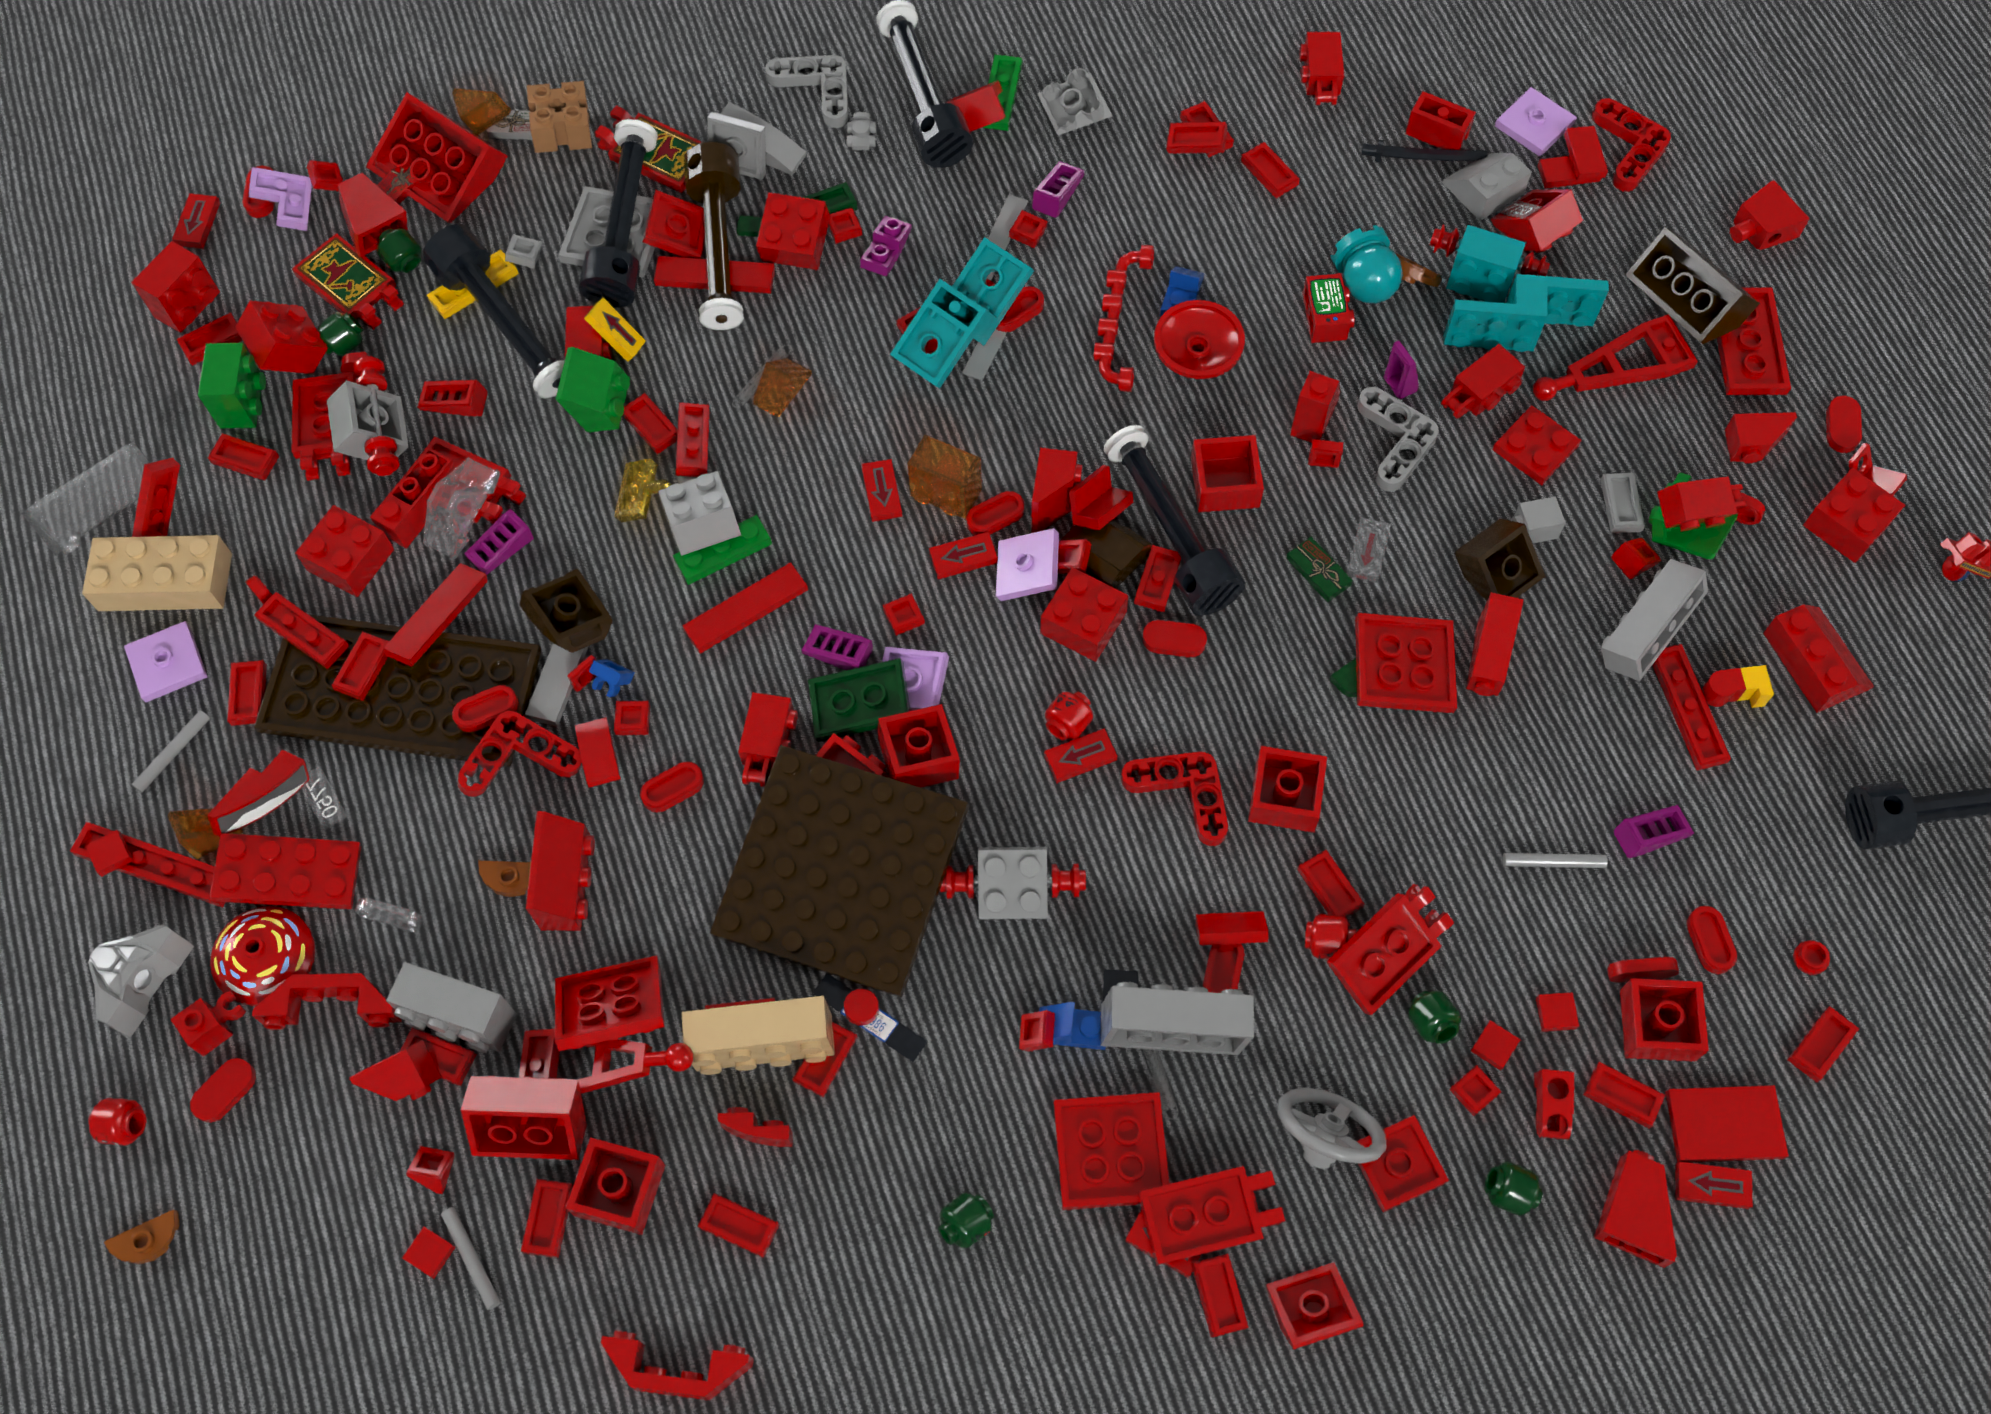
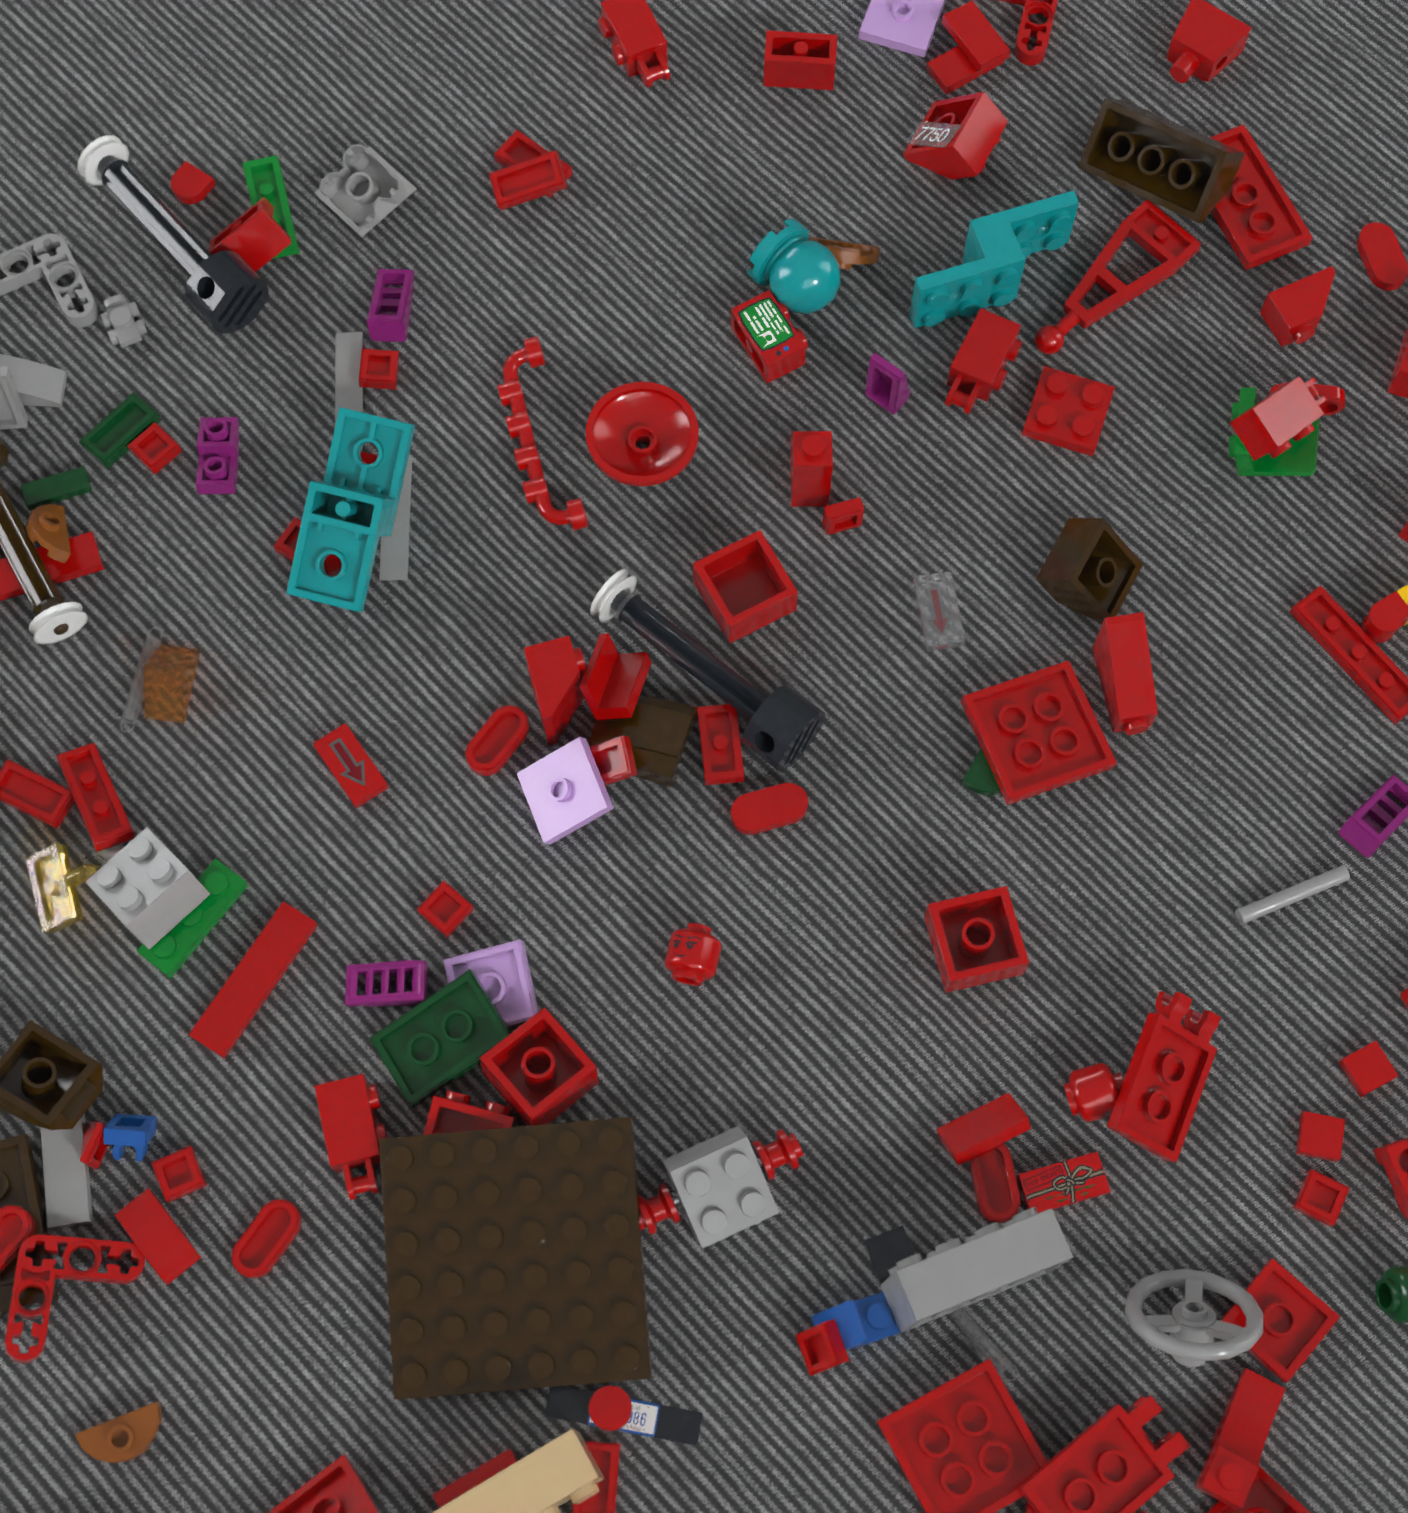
camera: 25 degrees left, 5 degrees up
(559, 873) = (184, 1409): red slope -> none
(743, 250) = (49, 529): none -> dark orange plate
(793, 231) = (98, 482): red brick -> none
(944, 476) = (422, 723): clear orange brick -> none
(952, 58) = (191, 184): none -> red tile
(963, 555) = (482, 807): red tile -> none
(1024, 308) = (420, 469): red tile -> none
(1080, 755) = (725, 995): red tile -> none
(1084, 614) = (656, 824): red brick -> none
(1182, 287) = (592, 376): blue slope -> none
(1194, 781) = (869, 973): red beam -> none
(1270, 170) = (628, 188): red tile -> none
(1278, 994) = (1064, 1183): none -> red tile
(1319, 569) = (894, 657): dark green tile -> none
(1328, 1236) = (1240, 1439): none -> red slope
(1330, 885) = (1067, 1030): red tile -> none
(1407, 431) = (920, 450): light grey beam -> none
(1420, 153) = (745, 117): black sword -> none
(1434, 1017) = (1245, 1135): dark green head -> none
(1485, 262) = (925, 214): teal brick -> none
(1489, 183) = (882, 112): light grey slope -> none
(1542, 519) = (1111, 499): light grey brick -> none
(1622, 502) = (1188, 443): light grey tile -> none
(1635, 557) = (1229, 502): red slope -> none
(1654, 619) = (1282, 570): light grey brick -> none

